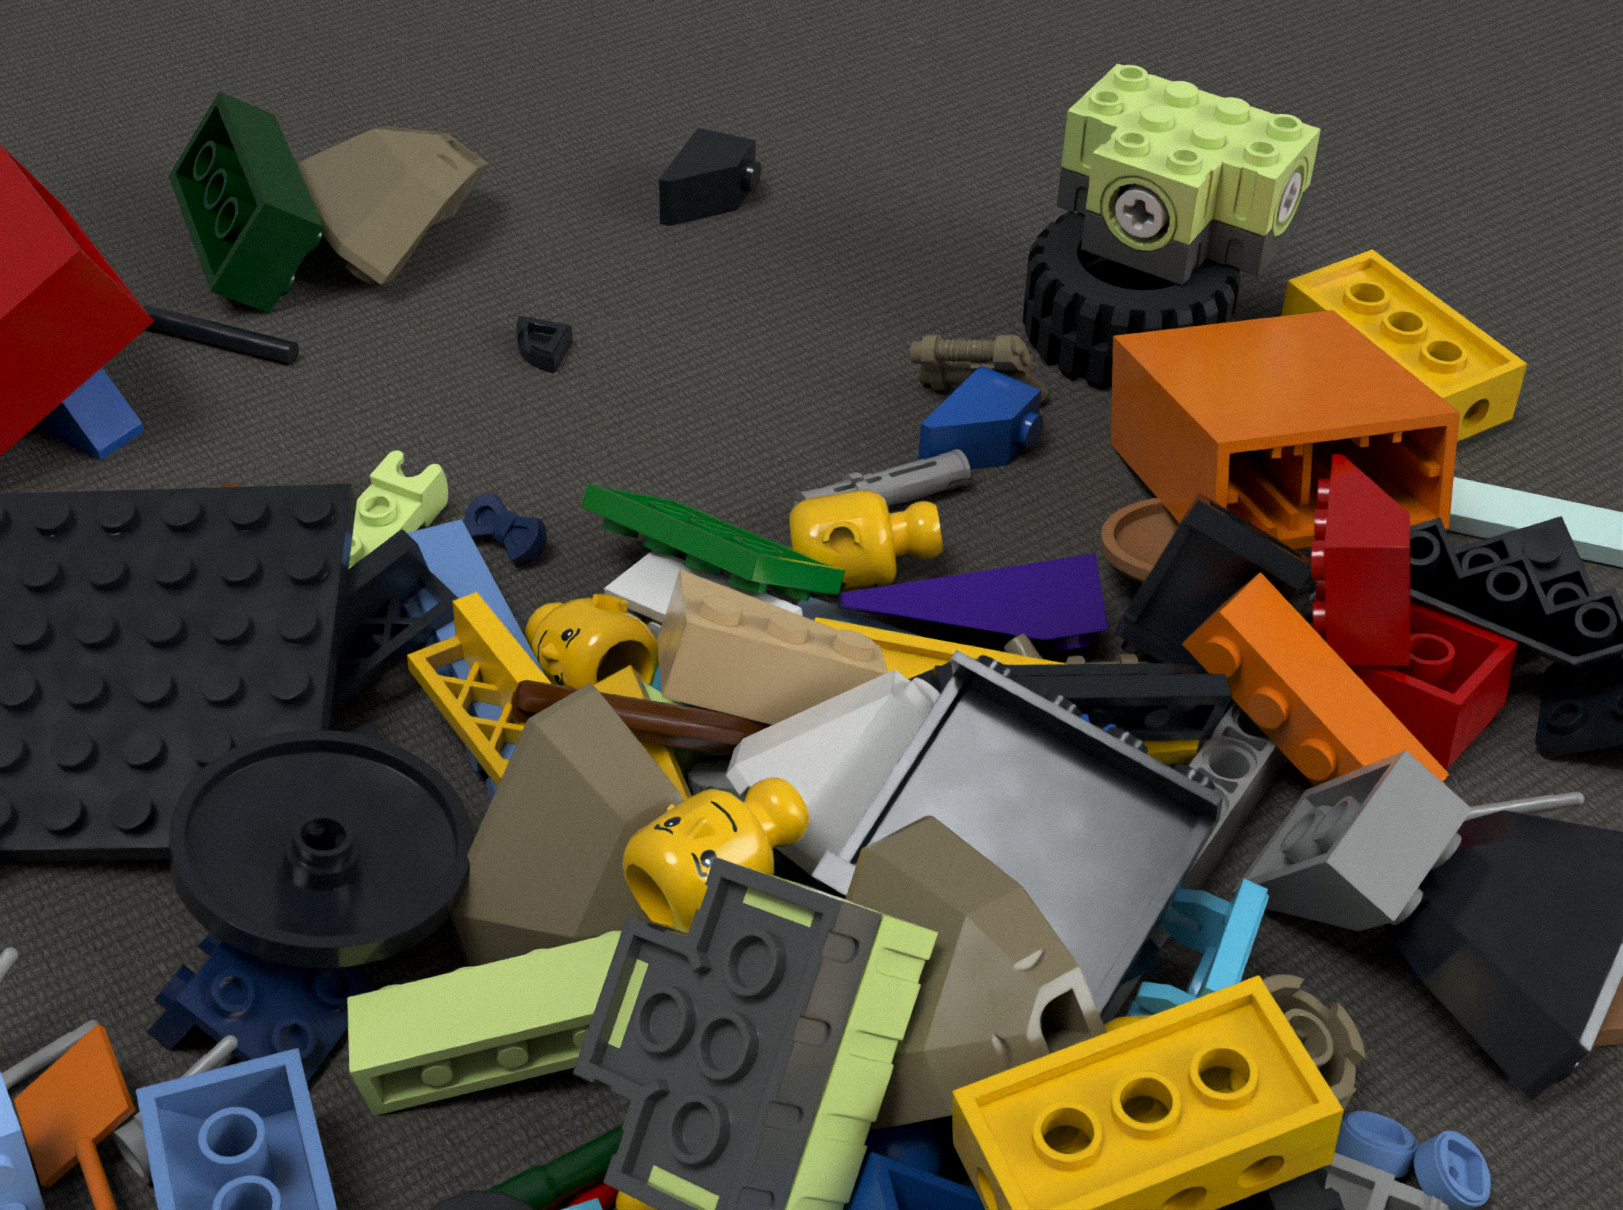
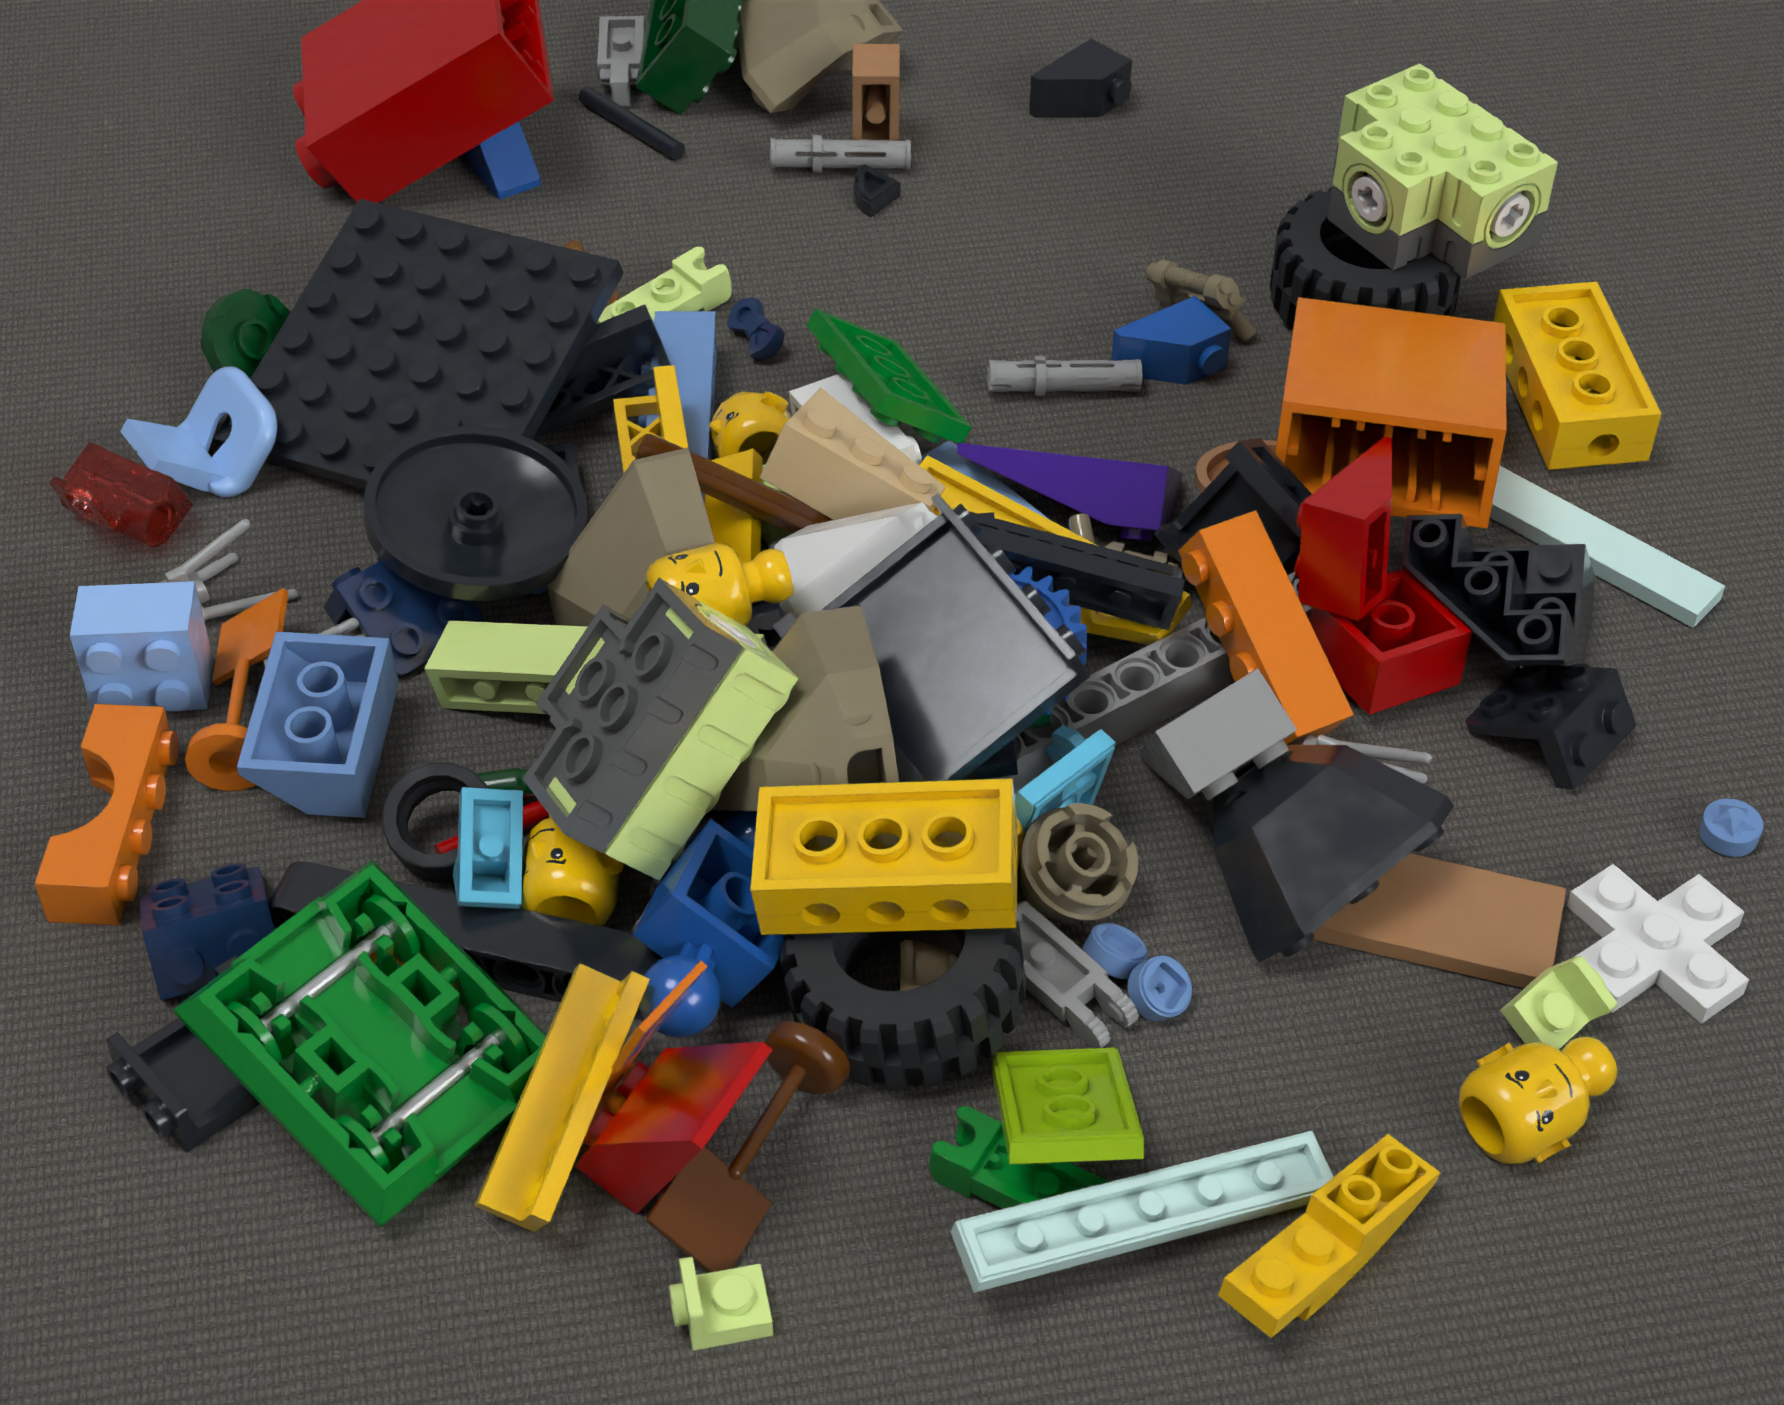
camera: 25 degrees right, 5 degrees up
(167, 261) = (620, 54): none -> light grey hinge
(424, 323) = (783, 153): none -> light grey pin
(504, 240) = (875, 92): none -> medium nougat brick
(862, 536) = (1013, 408): yellow piece -> none

